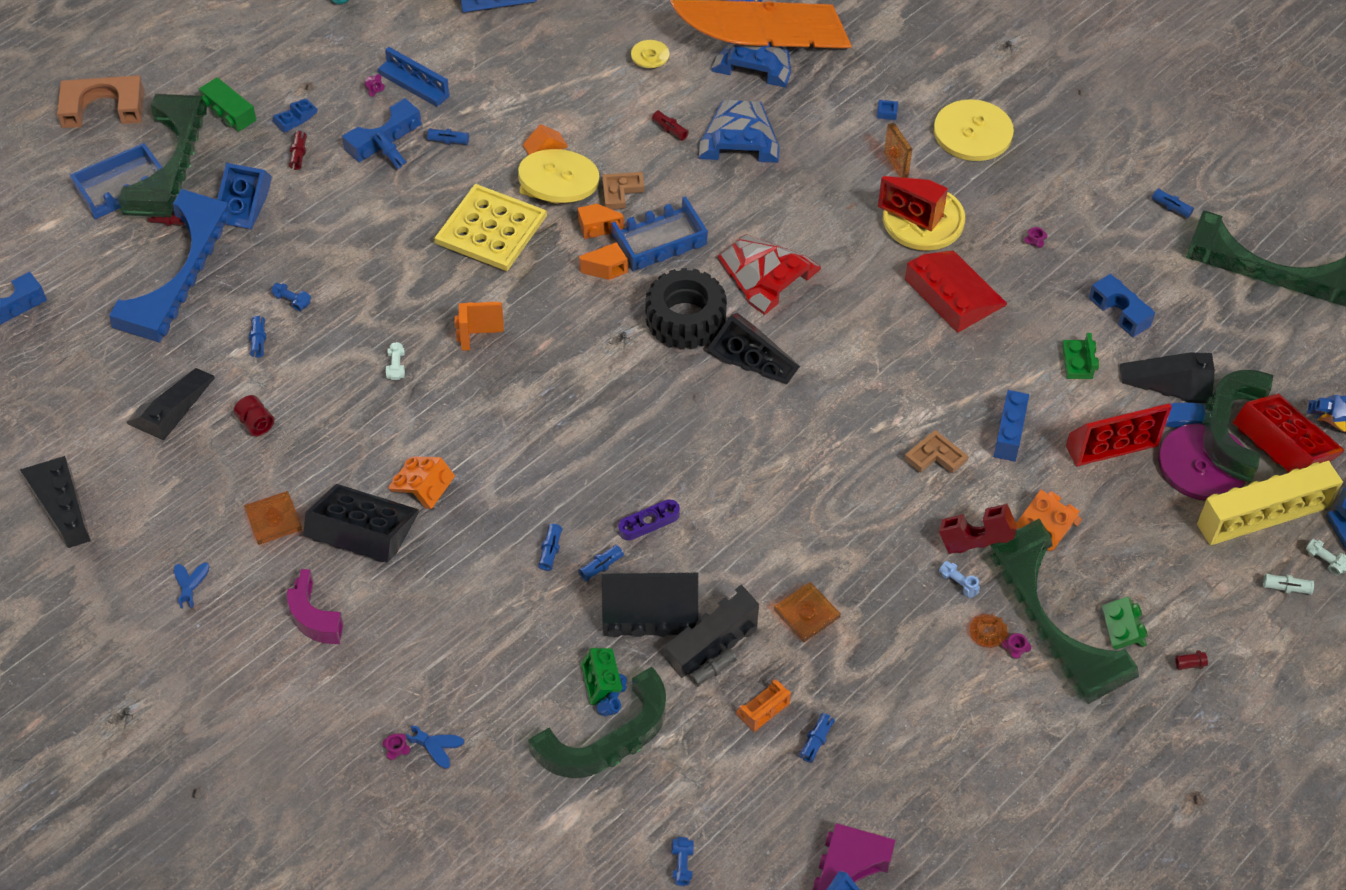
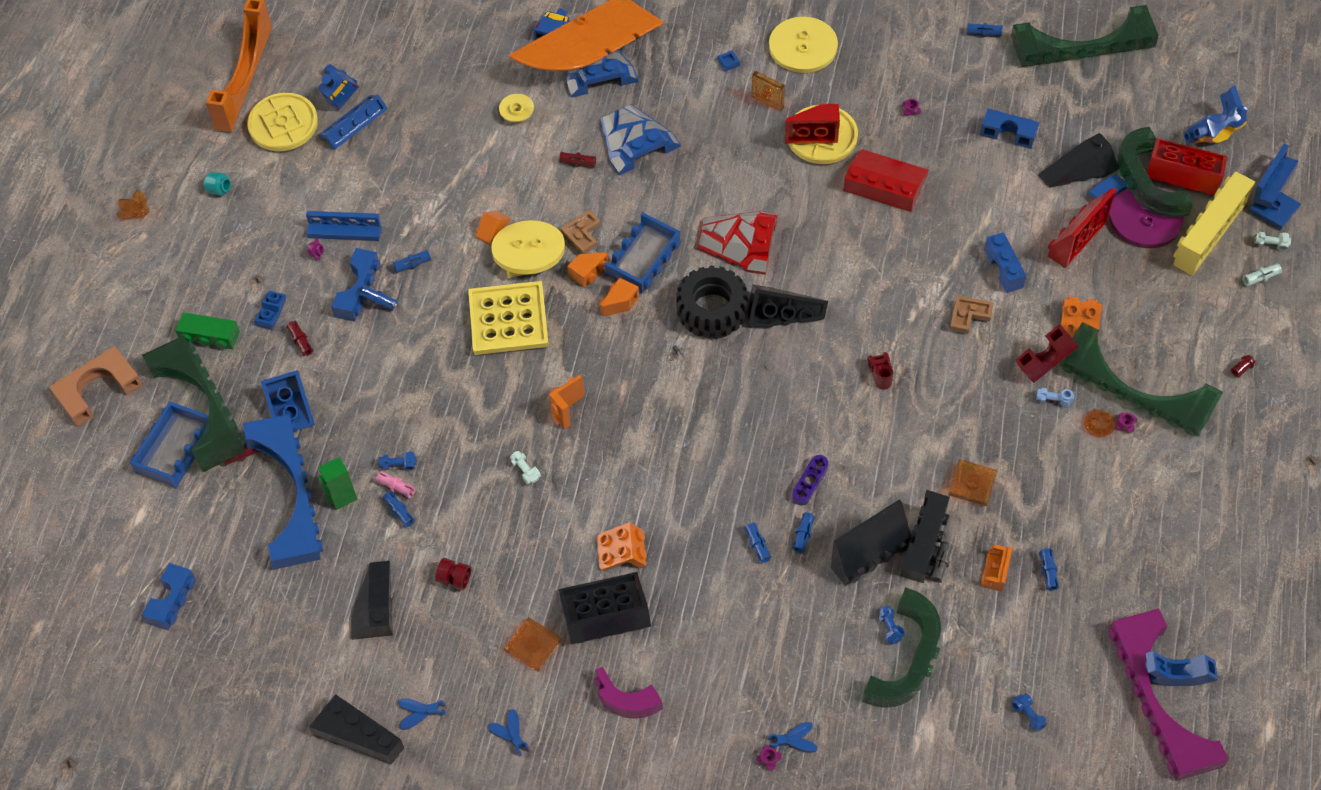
camera: 30 degrees left, 5 degrees up
(128, 518) = (420, 711): none -> blue piece
(216, 280) = (336, 483): none -> green brick
(272, 314) = (395, 484): none -> bright pink pin
(600, 674) = (871, 615): green bracket -> none
(801, 458) = (880, 368): none -> dark red piece
(1080, 358) = (1010, 184): green bracket -> none
(1124, 623) = (1181, 365): green bracket -> none

